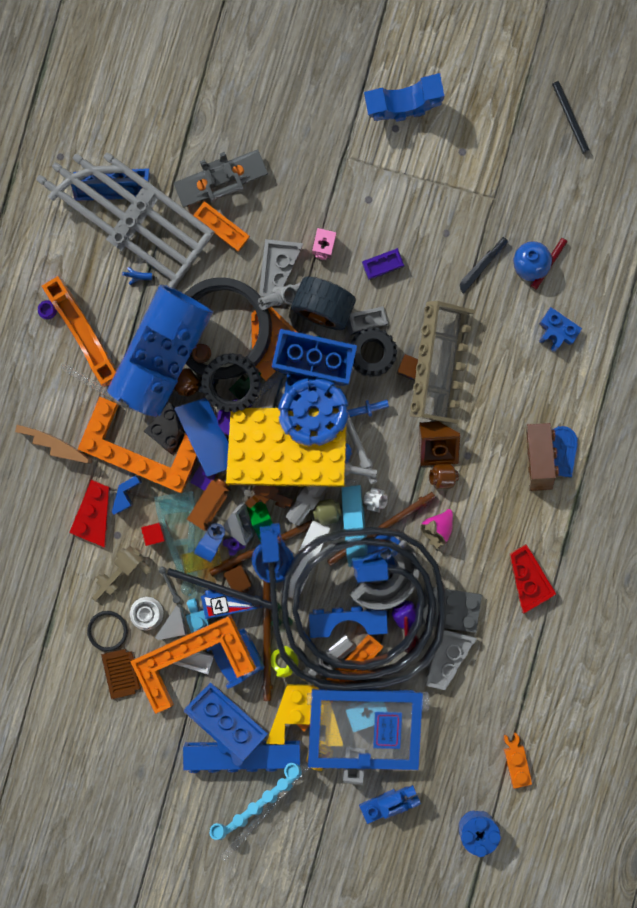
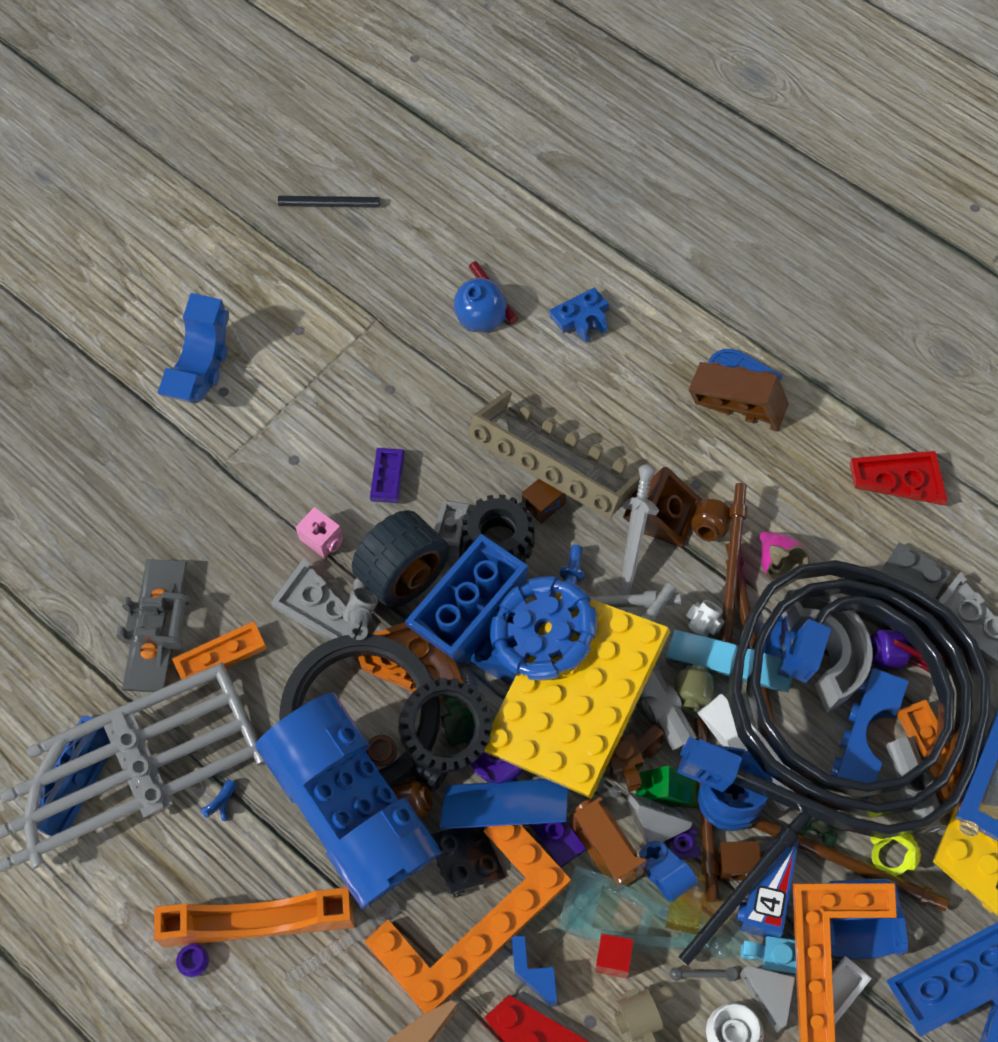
camera: 60 degrees left, 25 degrees down
(421, 433) = (640, 508): none -> light grey sword
(453, 491) = (738, 513): none -> reddish brown bar
(470, 278) = (455, 369): black piece -> none

